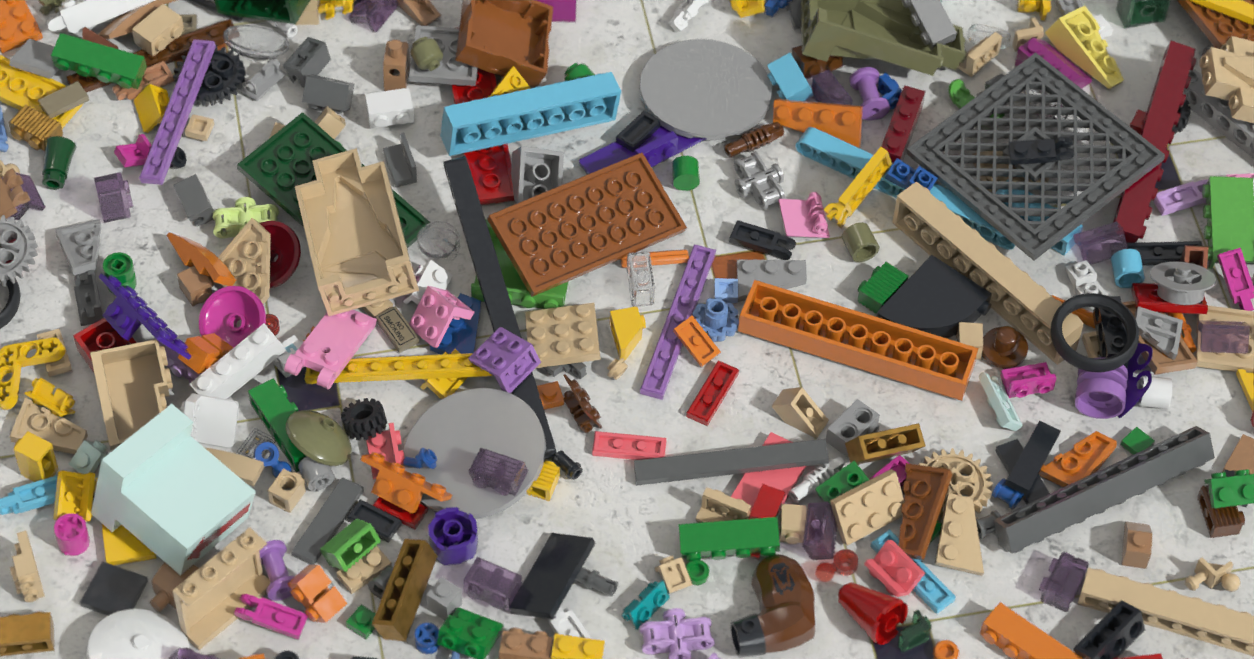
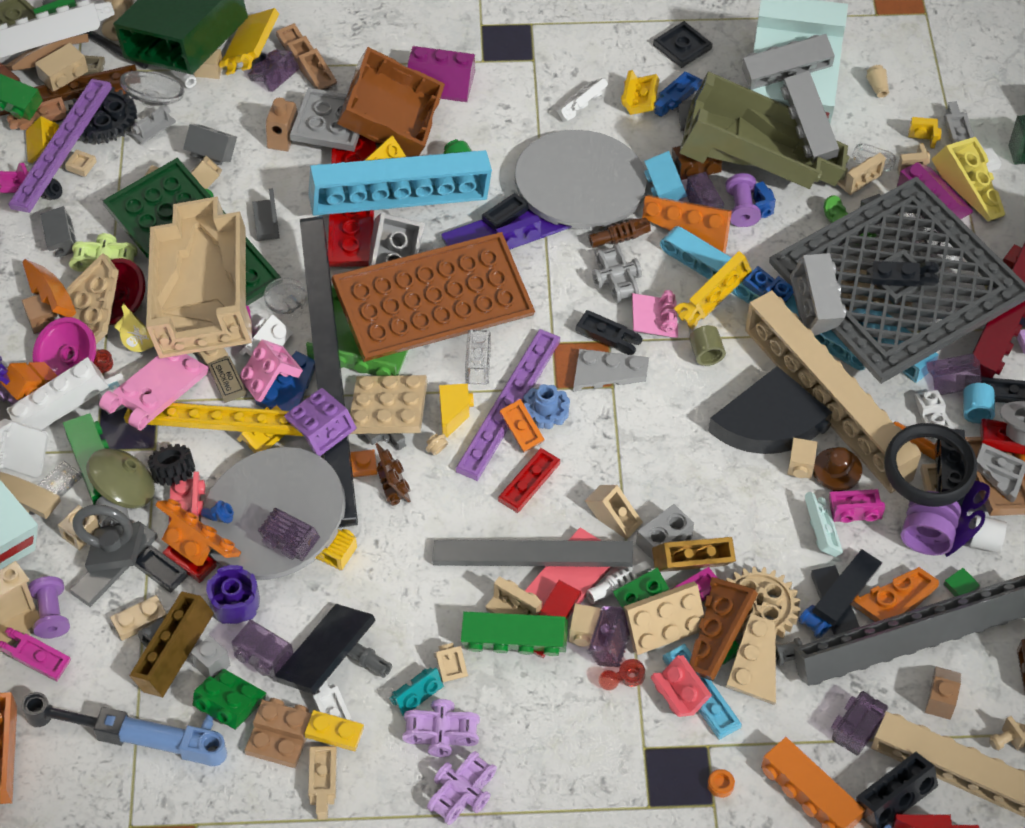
camera: 10 degrees right, 0 degrees up
(272, 460) = (72, 495): blue plate -> none
(297, 294) = (133, 332): none -> light yellow hat
(307, 60) = (198, 109): dark grey hinge -> none
(312, 591) = (79, 635): orange piece -> none
(325, 503) = (112, 545): none -> dark grey tile
(350, 545) = (128, 591): bright green brick -> none
(361, 621) = (121, 670): green plate -> none
(389, 108) = (266, 163): white brick -> none
(426, 53) = (309, 114): olive head -> none
(430, 632) = (182, 691): blue wheel -> none
(566, 464) = (369, 540): black pin -> none
(628, 446) = (432, 524): coral tile -> none
(664, 257) = (508, 338): orange axle -> none
(685, 173) = (544, 257): green piece -> none
(697, 571) = (476, 663): green tile -> none
(726, 289) = (563, 378): light blue plate -> none
(785, 609) = (559, 714): reddish brown piece -> none
(858, 339) = (687, 444): orange brick -> none
(873, 611) = (651, 729): red cone -> none
(881, 286) = (720, 391): green brick -> none
(903, 122) = (771, 233): dark red brick -> none
(915, 634) = (691, 760): clear green bracket -> none
(961, 179) = (817, 293): none -> light grey slope

